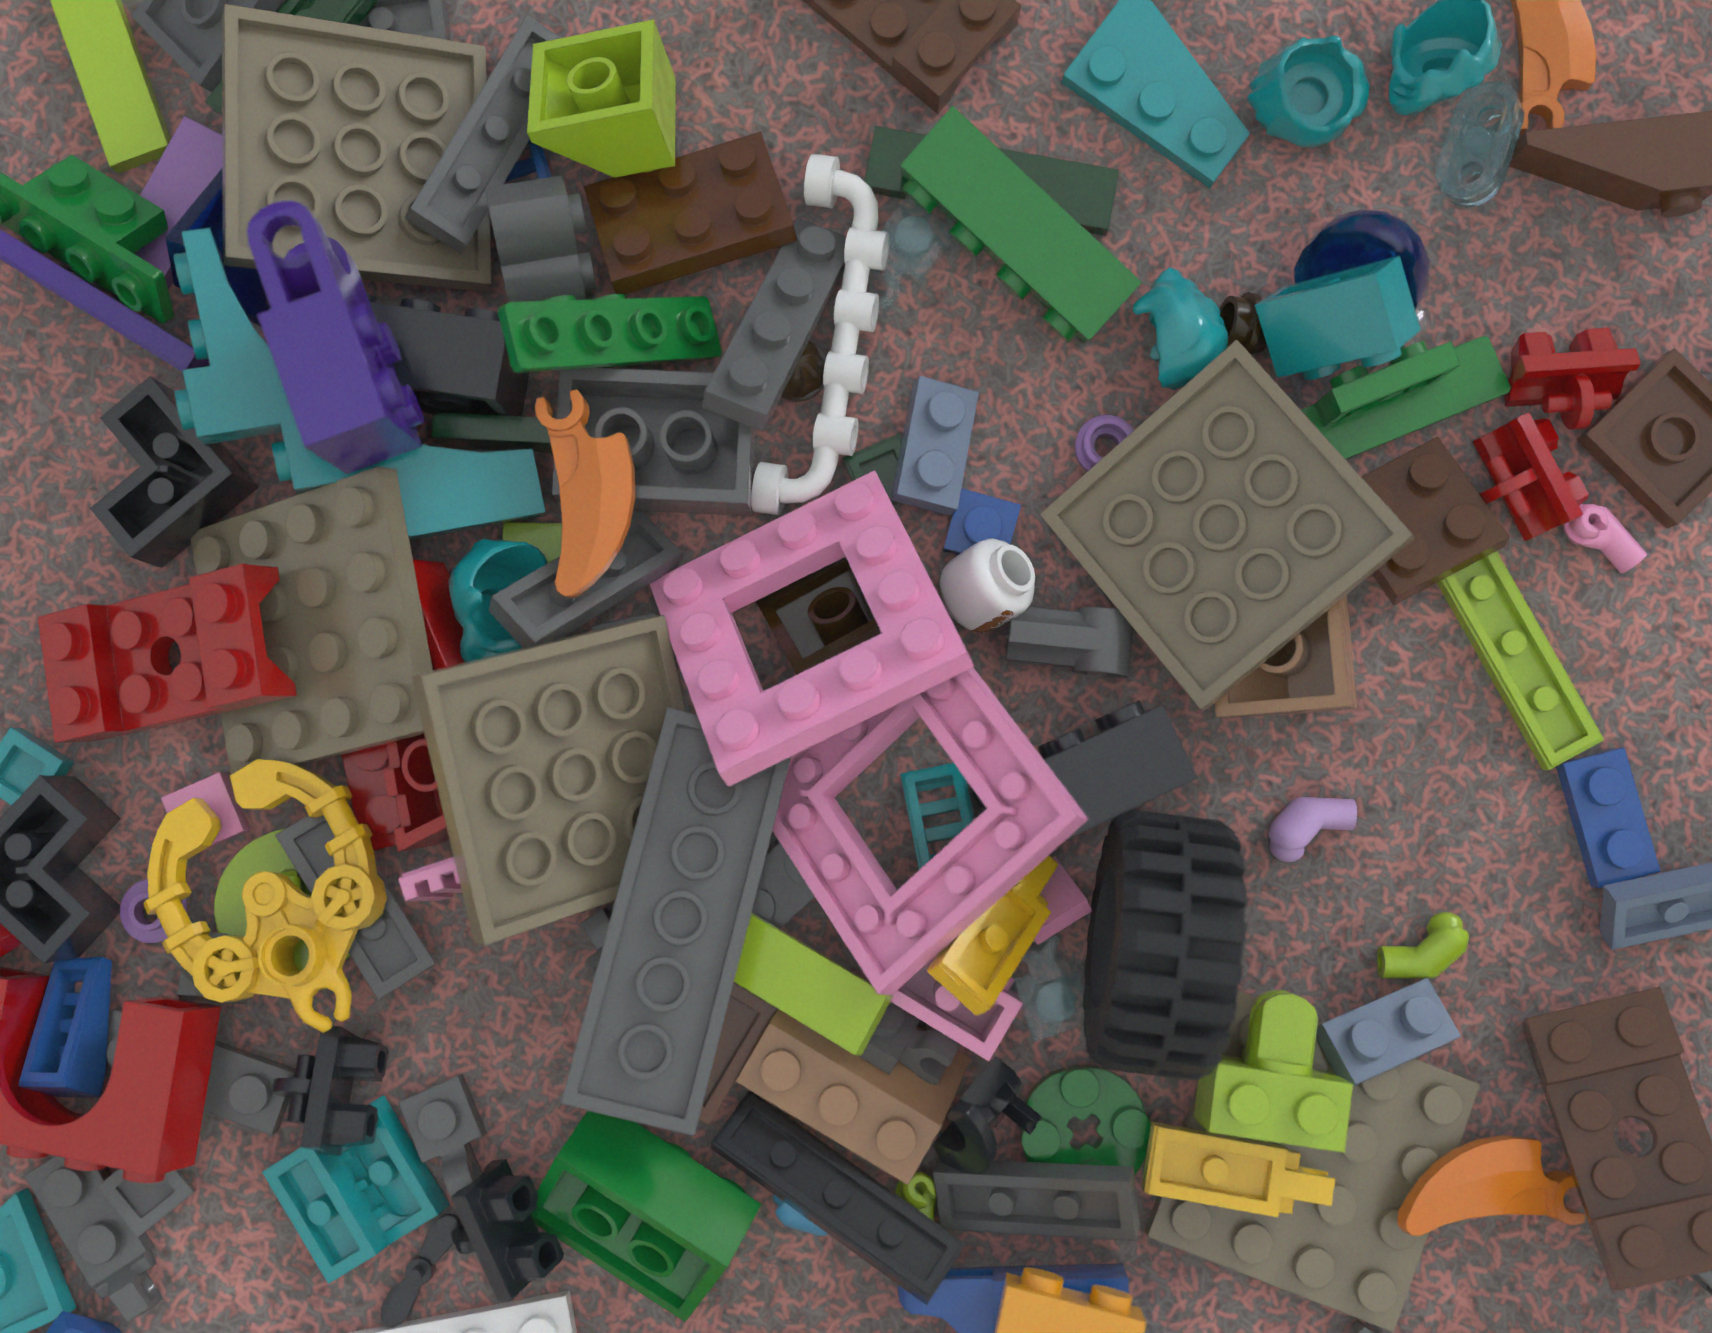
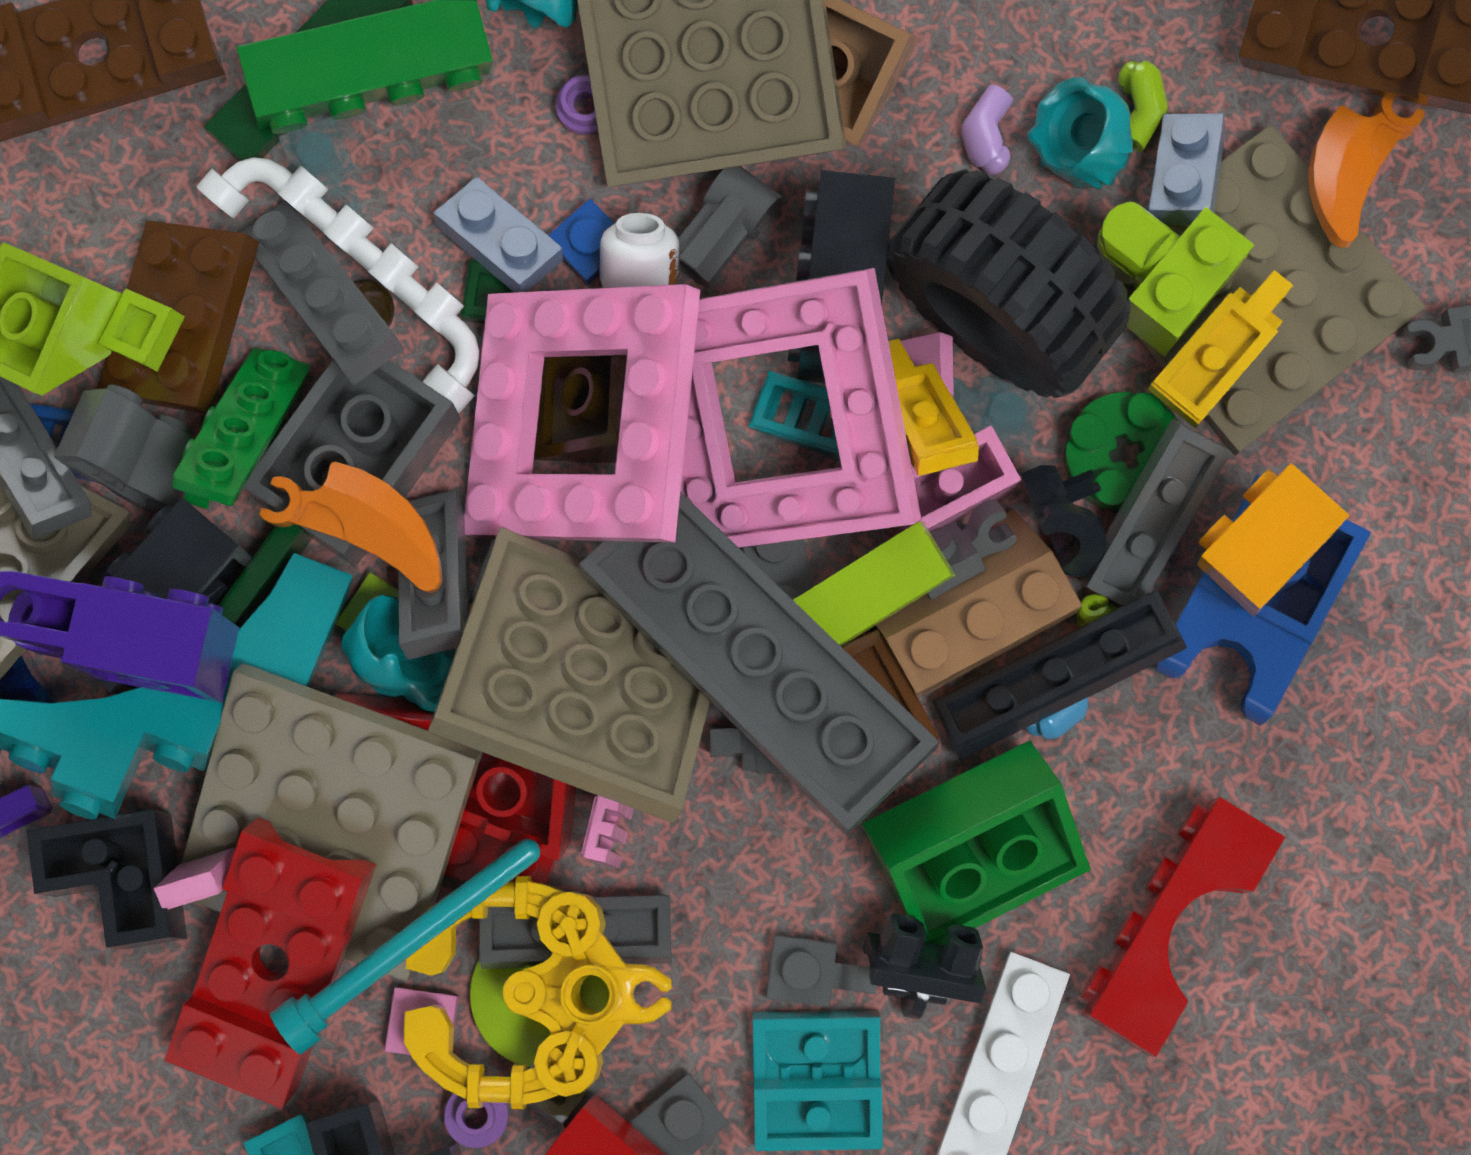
camera: 60 degrees left, 5 degrees down
(124, 717) = (304, 1019): none -> teal piece
(191, 546) = (194, 880): none -> bright pink tile
(324, 1087) = (749, 1052): black hips -> none
(419, 1270) = (917, 1066): black piece -> none
(647, 190) = (141, 329): none -> lime plate
(1361, 915) = (1083, 133): none -> teal hair

